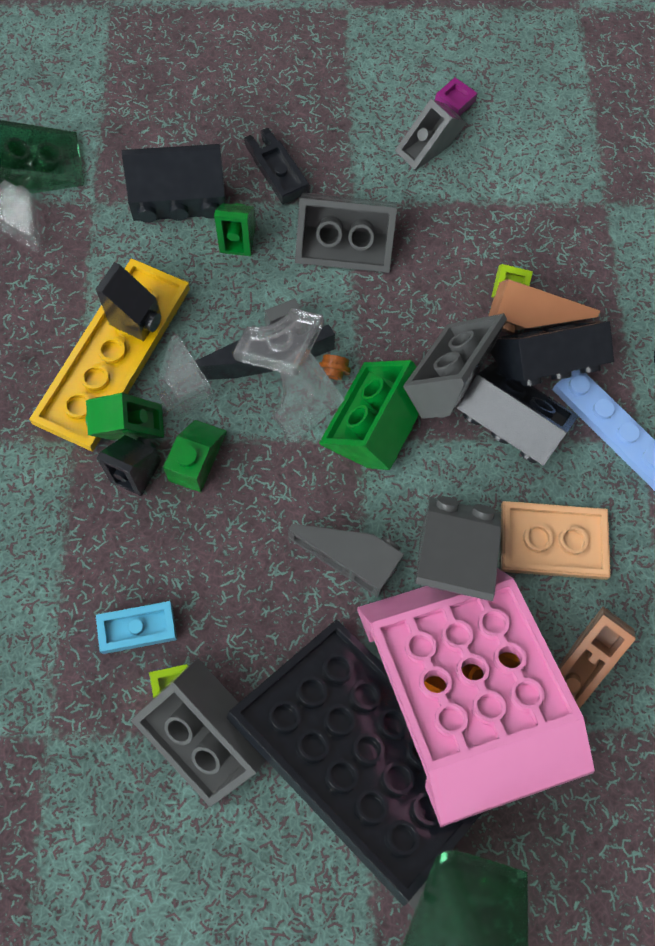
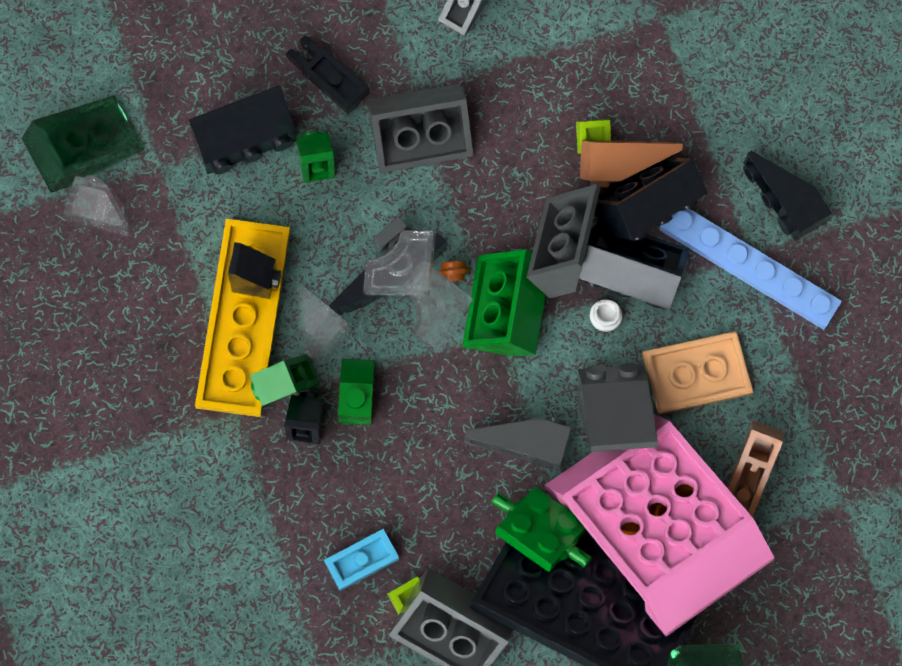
camera: 20 degrees left, 5 degrees up
(336, 655) = (541, 529): none -> green plate
(474, 454) = (605, 315): none -> white plate

